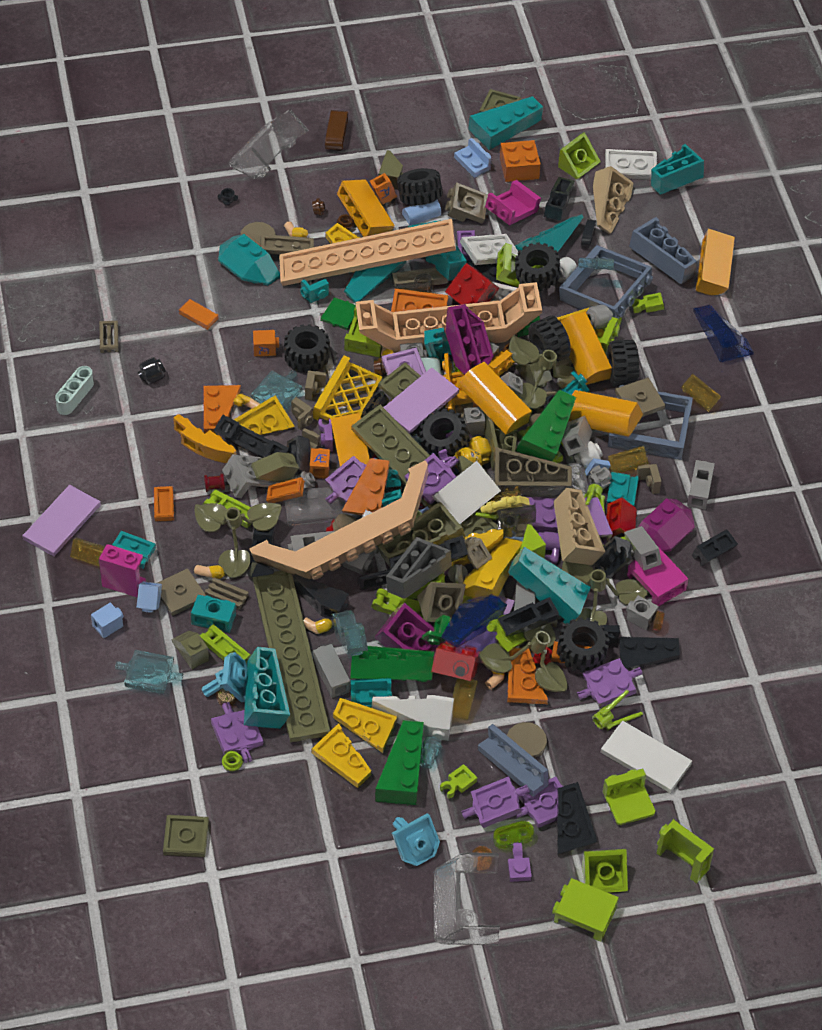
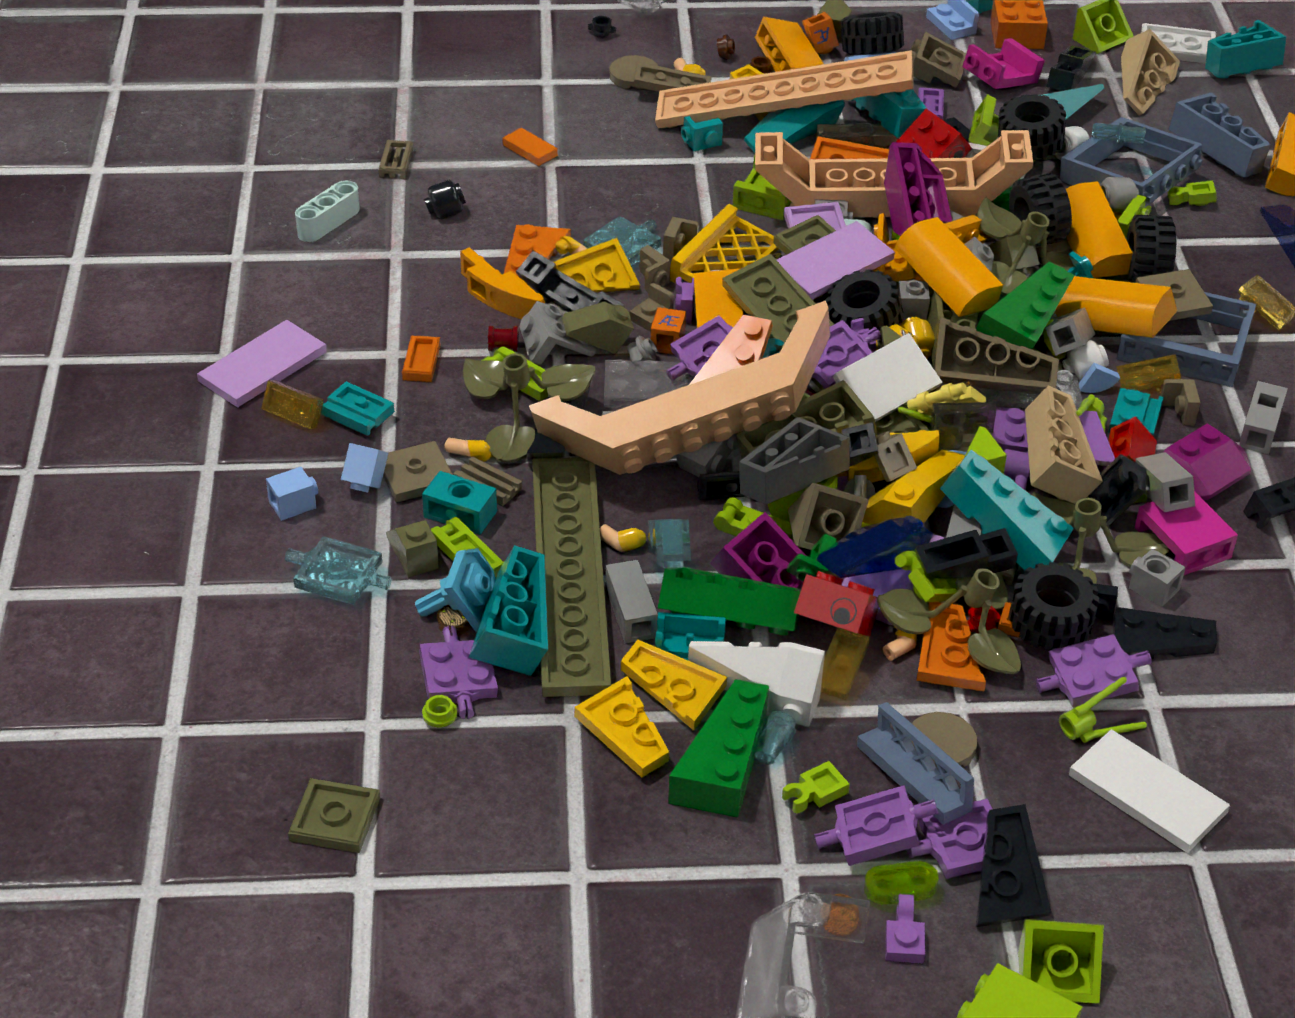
camera: 10 degrees right, 10 degrees down
(120, 570) = (325, 422): dark pink panel -> none
(248, 260) = (615, 93): teal wedge -> none
(265, 343) = (617, 184): orange brick -> none
(285, 490) = (611, 355): orange tile -> none
(300, 449) = (642, 311): black slope -> none
(306, 337) = (677, 192): black tyre -> none
(322, 597) = (634, 497): black slope -> none
(339, 313) = (731, 165): green piece -> none
(379, 367) = (778, 224): reddish brown plate -> none
(416, 840) = (727, 866): medium azure piece -> none
(437, 343) = (869, 200): teal hinge -> none
(485, 248) = (953, 107): white tile -> none
(588, 233) = (1110, 107): black beam -> none
(600, 476) = (1103, 387): light grey gear -> none
(628, 797) = (1112, 846): lime bracket -> none
(658, 621) = (1184, 591): clear orange tile -> none
(687, 847) = (1215, 939): lime panel -> none

